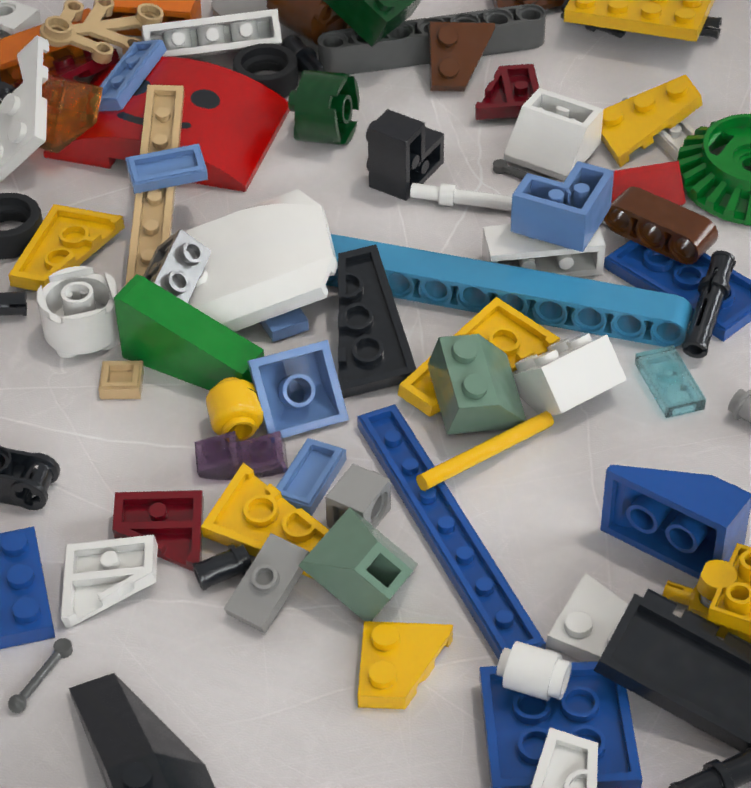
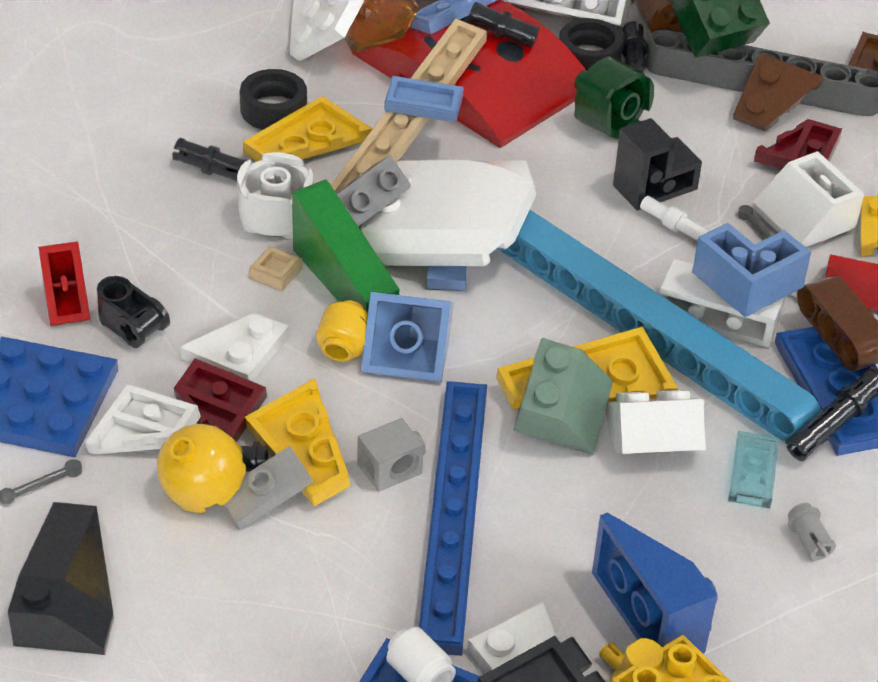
camera: 25 degrees right, 0 degrees up
(139, 465) = (240, 346): none -> white wing
(188, 76) = (503, 24): none -> black pin
(198, 591) = (200, 467): none -> yellow cylinder
(223, 455) = (334, 379): clear purple slope -> none
(311, 474) = (370, 412): medium blue tile -> none
(358, 565) = (349, 506): sand green slope -> none
(371, 334) = (509, 308): black wing -> none
(397, 661) = (328, 601): yellow wing -> none
(484, 451) = (534, 457): yellow bar -> none

